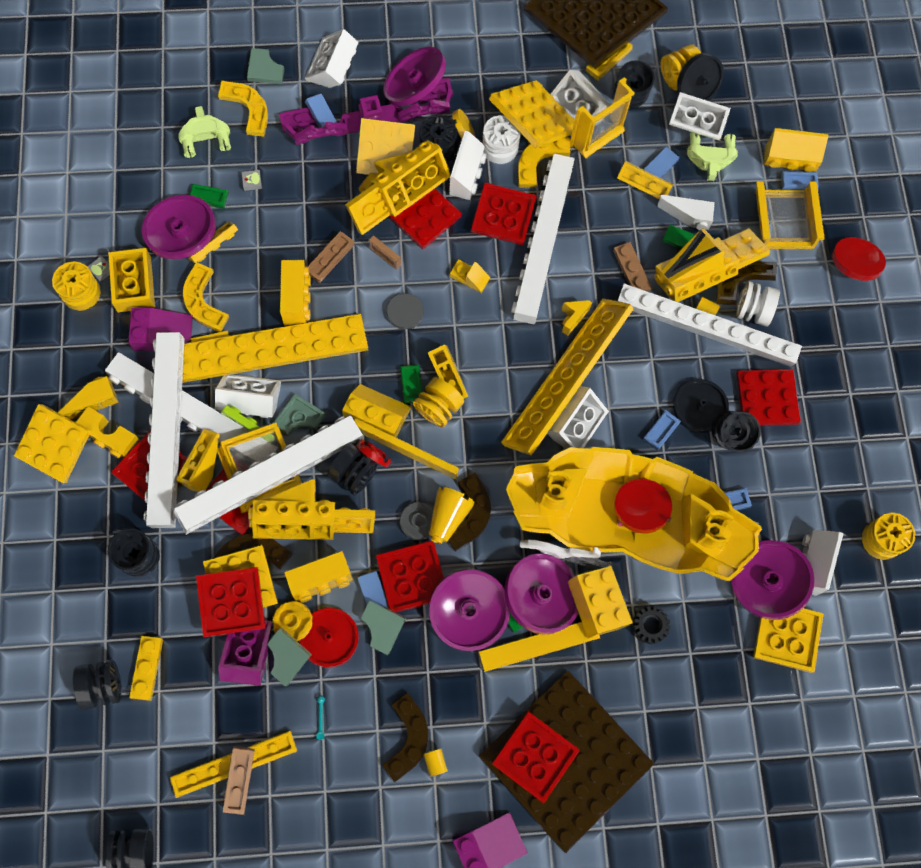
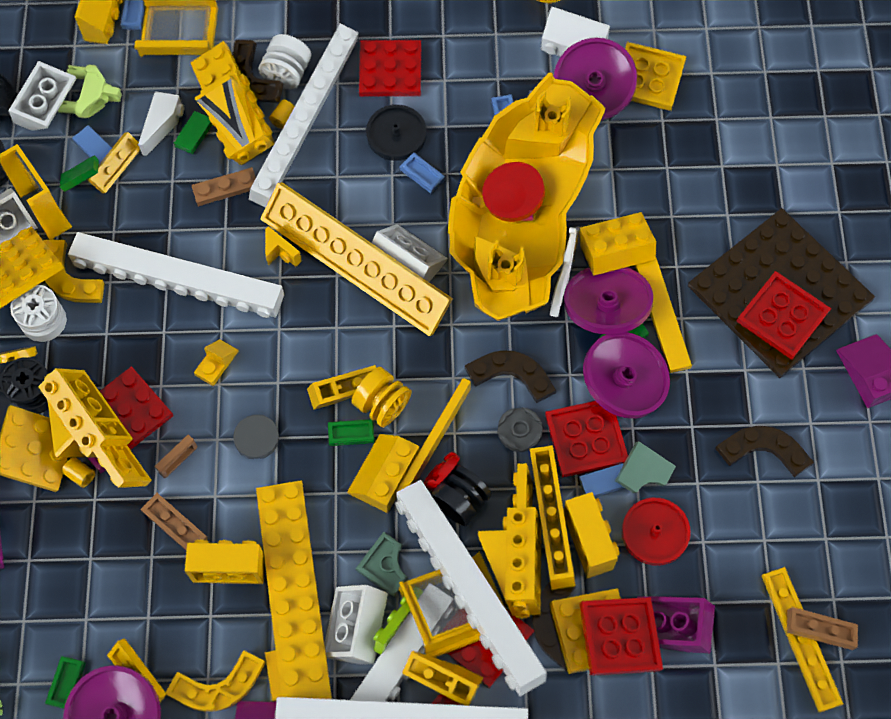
camera: 80 degrees left, 5 degrees down
(251, 180) = (49, 625): tile -> none
(288, 656) = (681, 573): sand green tile -> none
(294, 619) = (639, 571): yellow tile -> none
(320, 545) = (552, 518): none -> yellow brick
(320, 735) = (766, 542): teal hinge -> none
(435, 762) = (791, 418): yellow piece -> none
(448, 514) = (517, 391): yellow cone -> none
(467, 167) = (75, 354): white slope -> none
(503, 213) = (138, 318): red plate -> none
(630, 154) = (79, 173): none -> green tile
(659, 616) = (639, 188): black tyre -> none
(746, 432) = (432, 96): black wheel -> none

